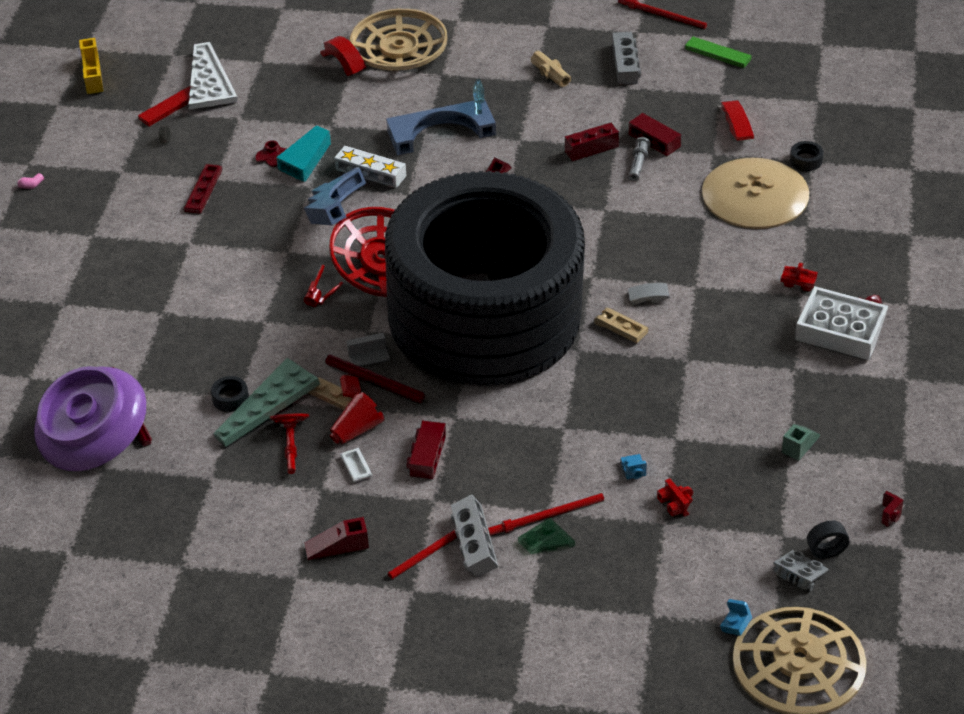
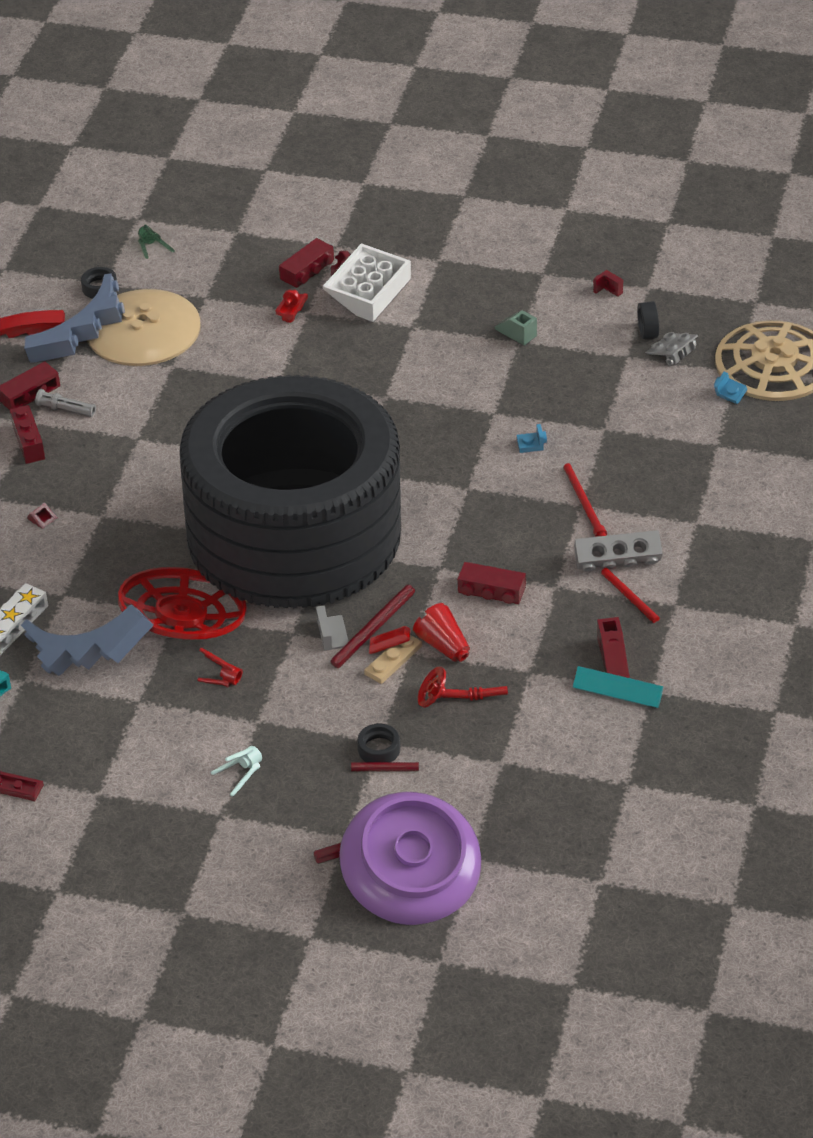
camera: 85 degrees left, 0 degrees up
(208, 403) = (384, 766): none -> dark red bar
(216, 317) = (247, 758): none -> light aqua plant
(274, 394) = (383, 699): sand green wing -> none
(295, 549) = (618, 687): none -> teal tile
(356, 465) = (501, 642): white tile -> none
(545, 537) = (616, 507): clear green wing -> none
(679, 497) = (578, 412): red hips -> none
(734, 150) = (84, 326): none -> sand blue arch
(867, 281) = (306, 262): none -> dark red brick
(883, 175) = (148, 236): none -> clear green plant

